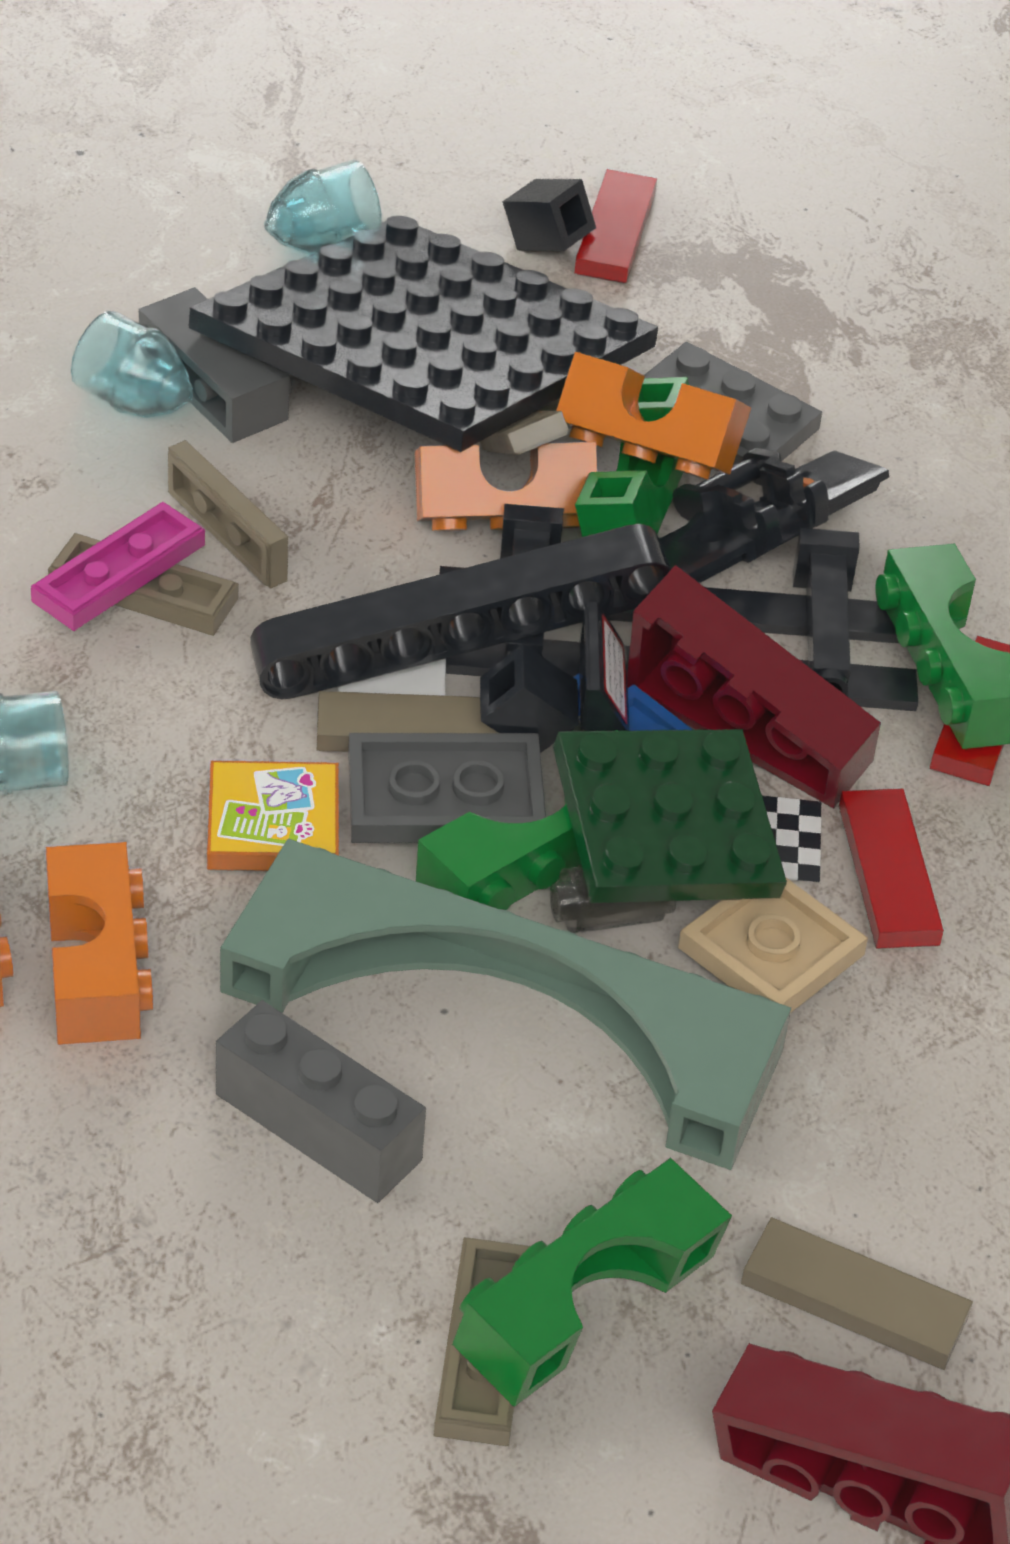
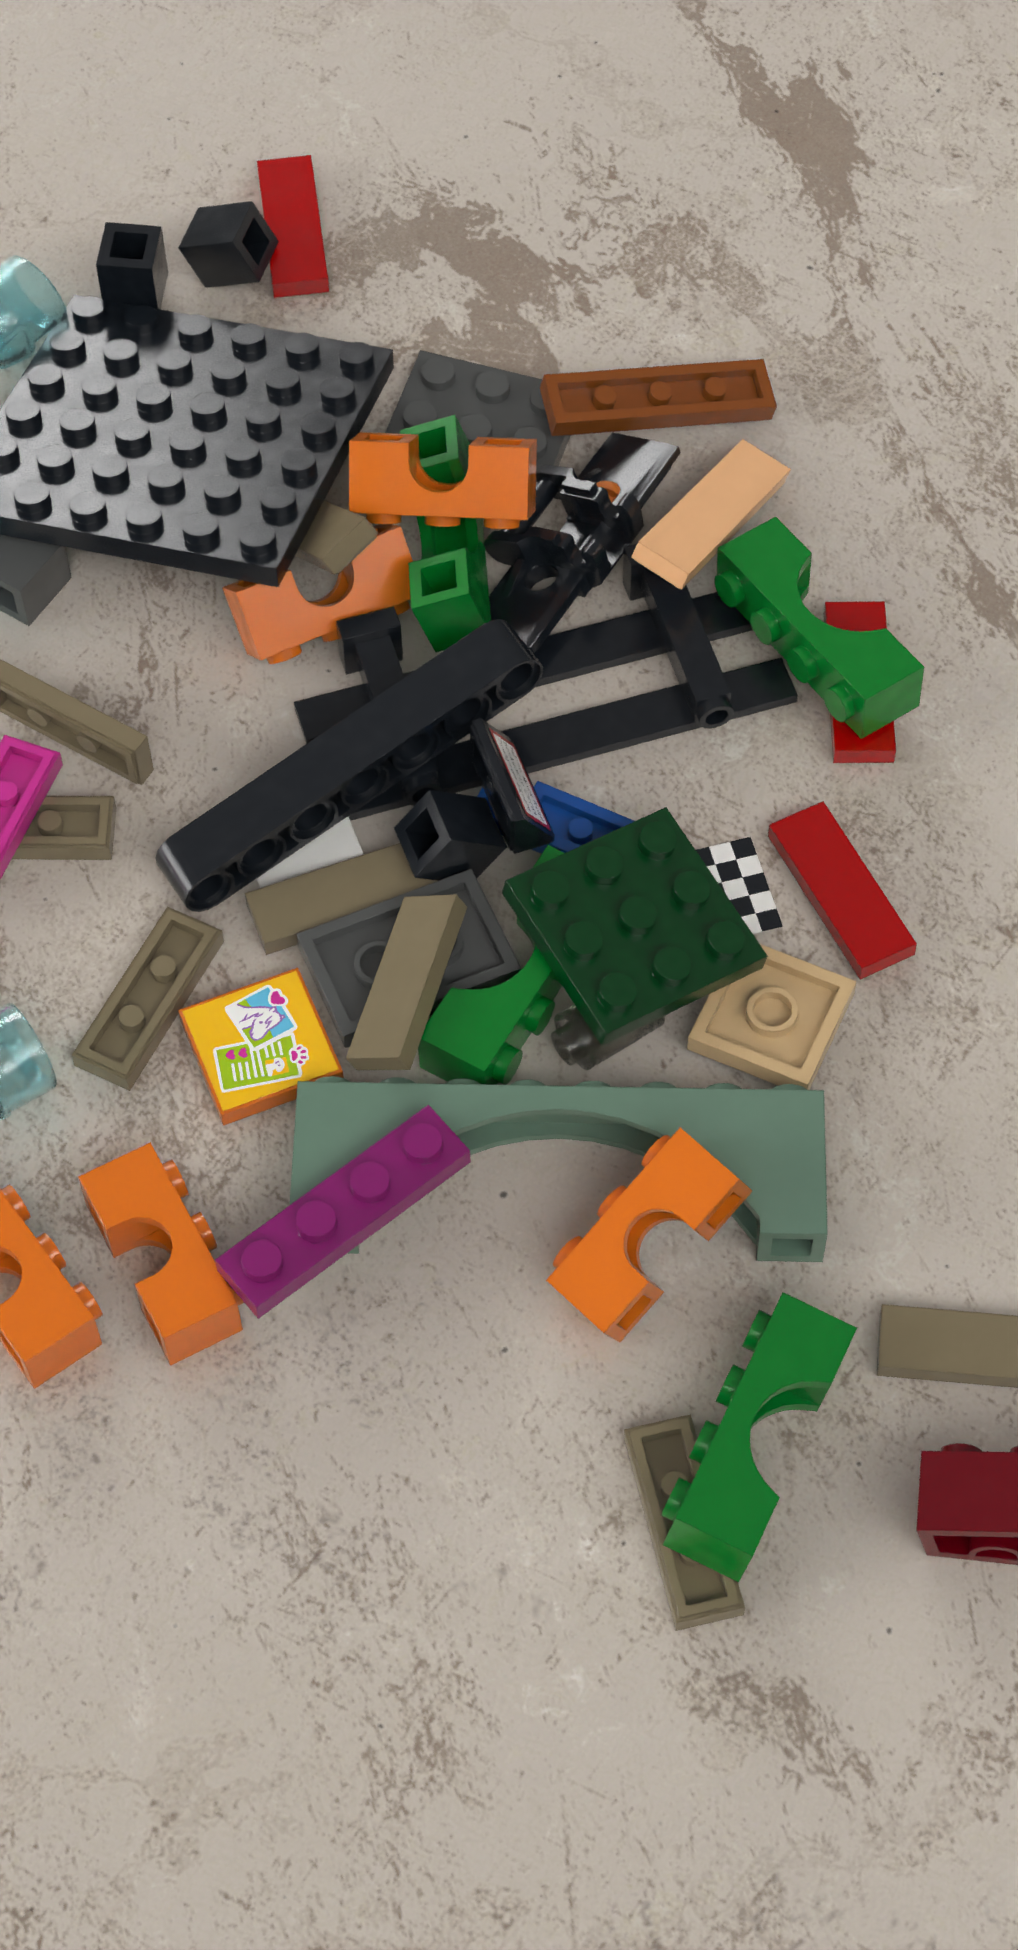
camera: 15 degrees left, 15 degrees up
(187, 745) = (148, 998): none -> dark tan tile
(275, 950) = (342, 1211): none -> magenta plate
(320, 1101) = (441, 1343): dark grey brick -> none
(429, 795) = (406, 983): none -> dark tan tile
(456, 201) = (132, 264): none -> black brick
(601, 1032) = (604, 1267): none -> orange arch
(729, 674) = (648, 754): dark red wedge -> none
(869, 529) = (710, 514): none -> light nougat tile
(888, 432) = (657, 397): none -> dark orange plate

